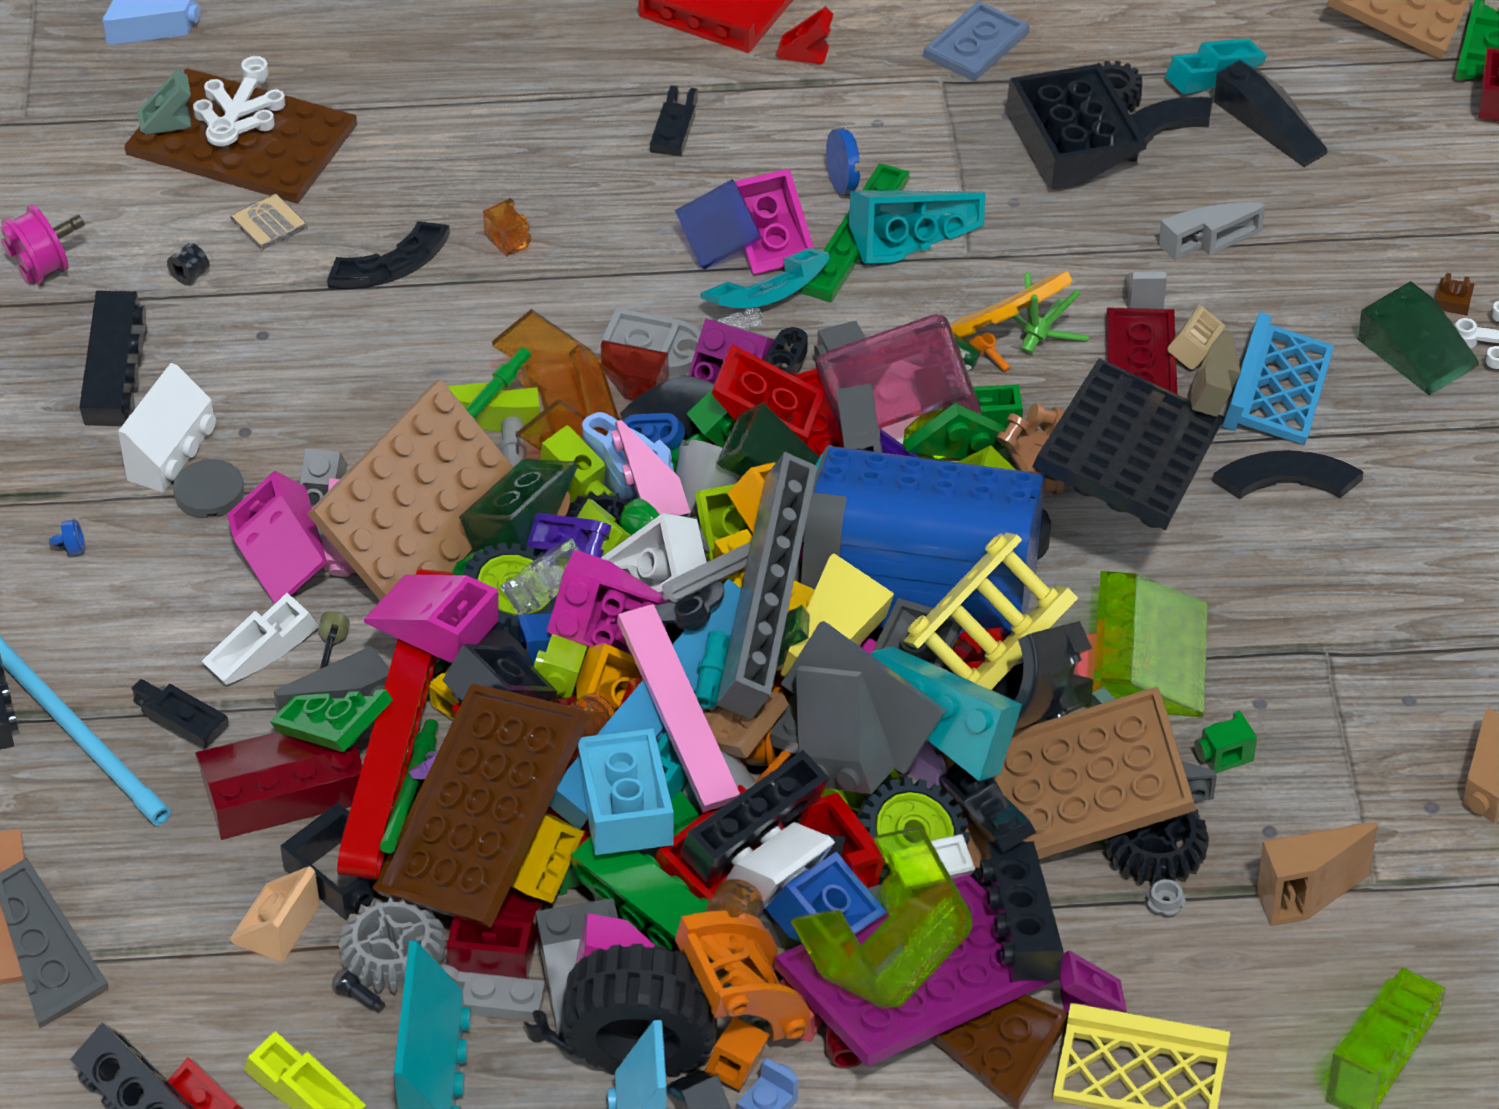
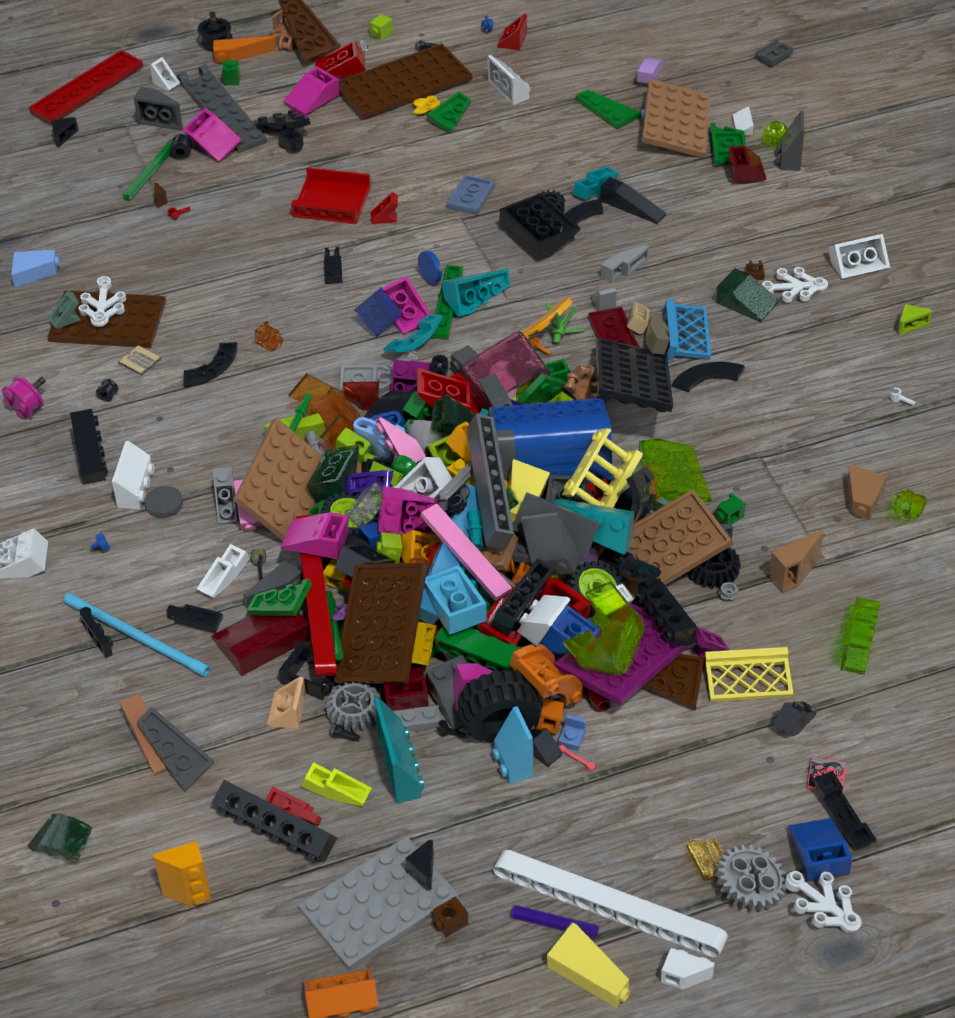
camera: 15 degrees left, 0 degrees up
(278, 535) = (214, 516): dark pink slope -> none
(736, 898) = (529, 637): clear orange head -> none

